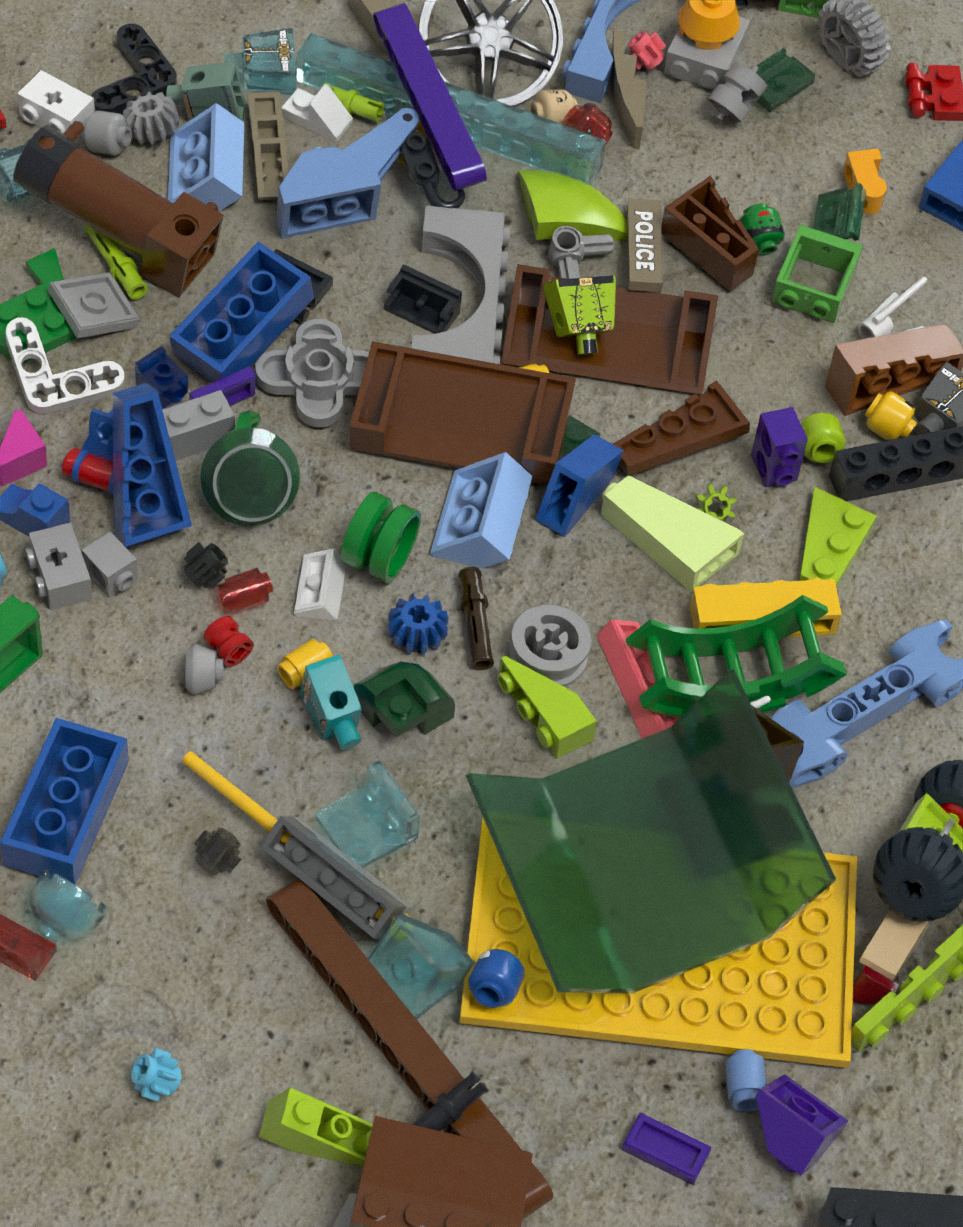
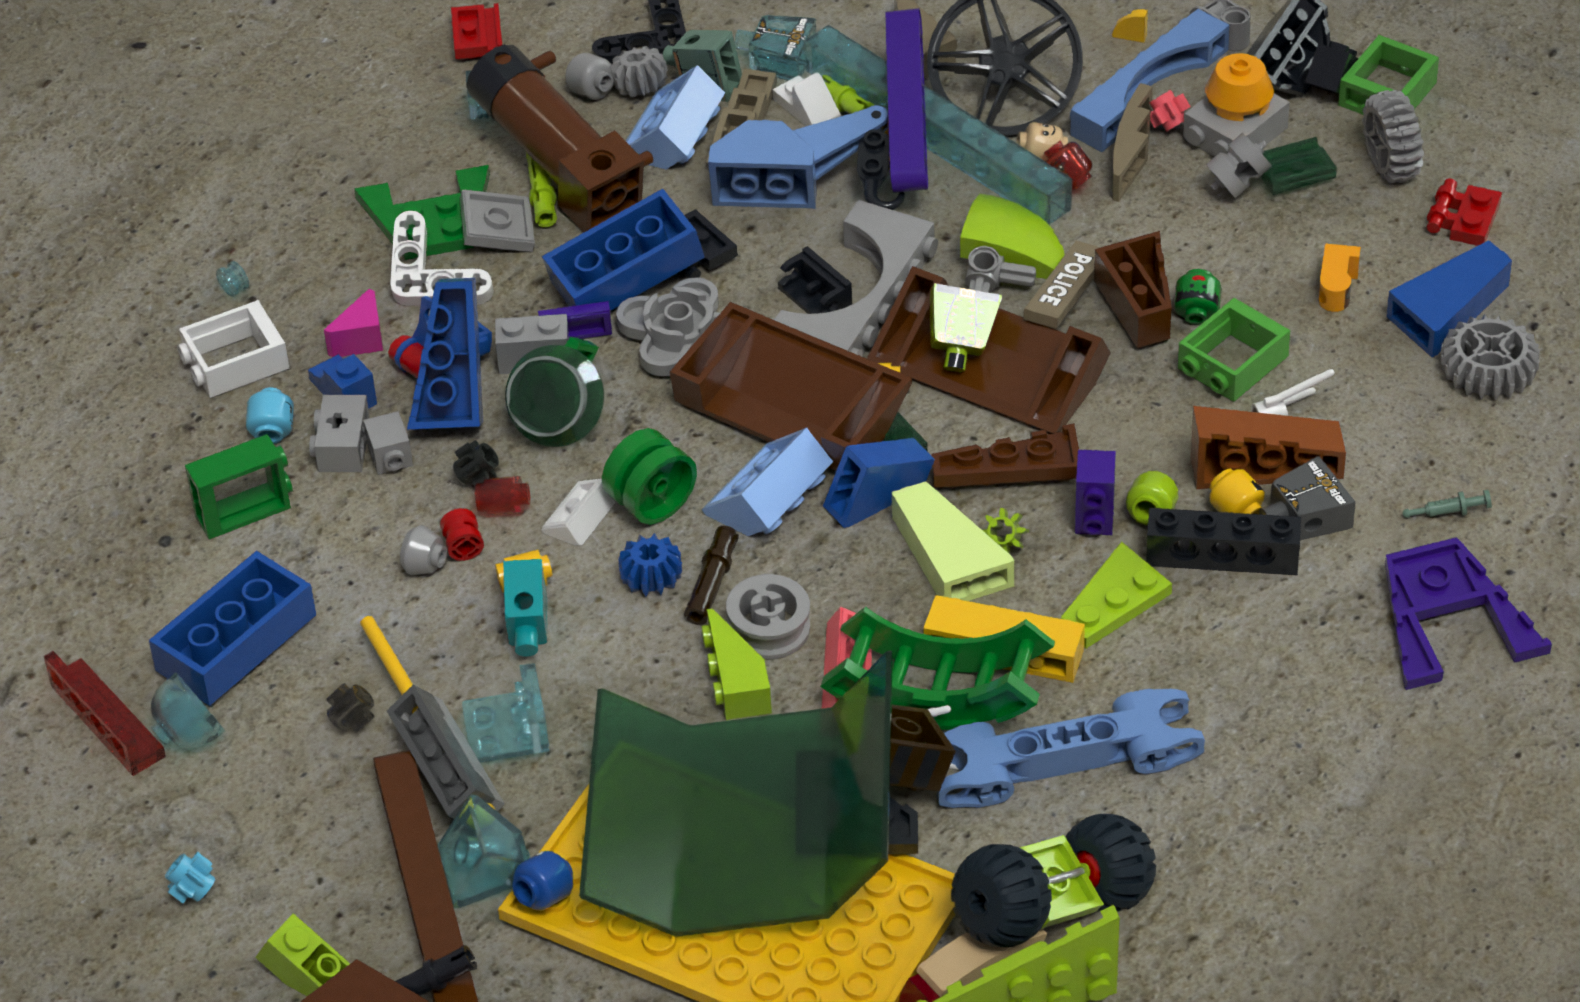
camera: 30 degrees right, 10 degrees down
(53, 103) = (556, 34): white brick -> none
(163, 375) = (524, 292): clear blue brick -> none
(403, 698) = (597, 619): dark green brick -> none
(841, 212) = (1290, 298): clear green plate -> none

